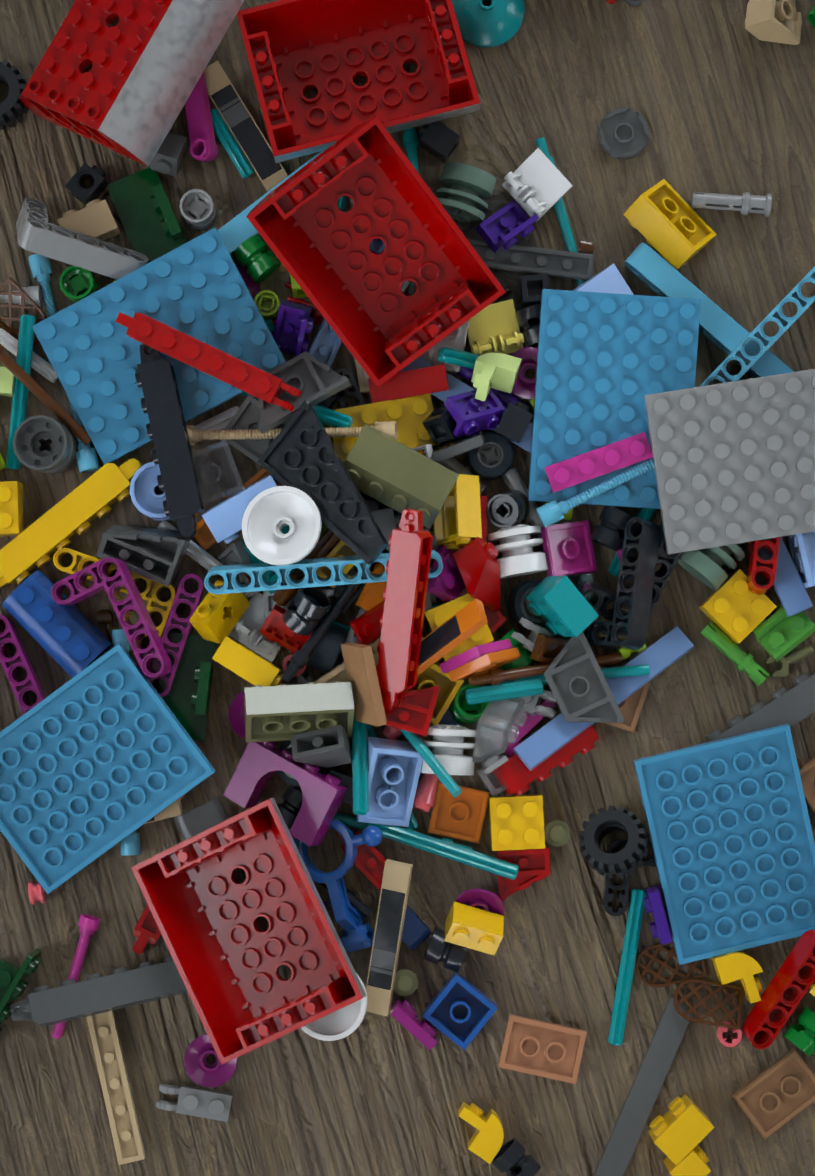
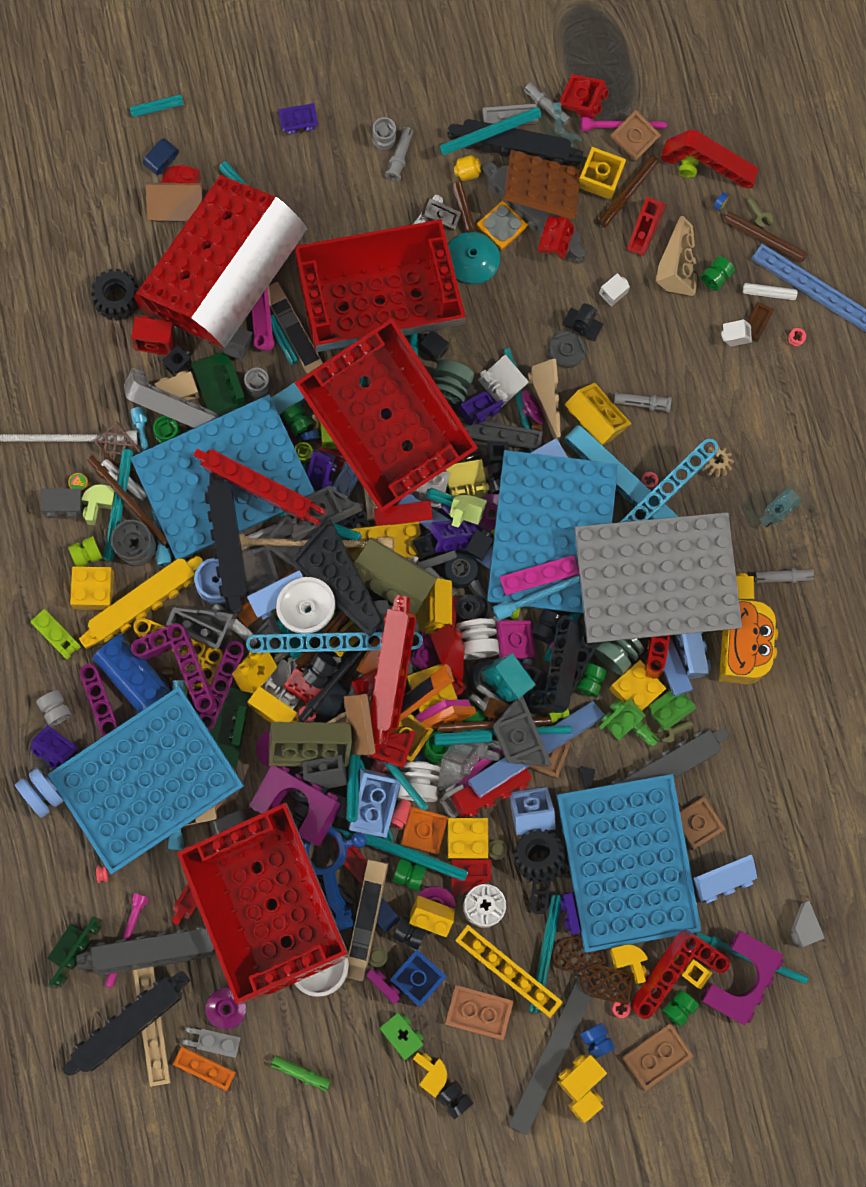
camera: 10 degrees left, 10 degrees down
(50, 150) = (153, 335): none -> red slope
(84, 1089) = (127, 1025): none -> black hinge
(187, 1136) = (204, 1068): none -> orange tile
(276, 279) = (310, 436): none -> blue tile
(312, 1137) = (301, 1073): none -> bright green pin
(441, 873) = (409, 874): none -> green wheel
(445, 1098) = (390, 1030): none -> bright green brick
(529, 904) = (478, 916): none -> white wheel
(578, 222) = (531, 407): none -> magenta dish
(580, 997) = (509, 971): none -> yellow brick
(593, 187) = (544, 383): none -> tan wedge
(601, 779) = (532, 810): none -> light blue slope
(645, 92) = (583, 321): none -> black tile
(673, 599) = (590, 680): none -> green wheel
(674, 730) = (587, 776): none -> black slope
(687, 43) = (614, 289): none -> white brick
(698, 1076) = (597, 1040): none -> blue wheel
(719, 651) = (623, 719): none -> bright green bracket
(752, 311) = (647, 475): none -> coral bush

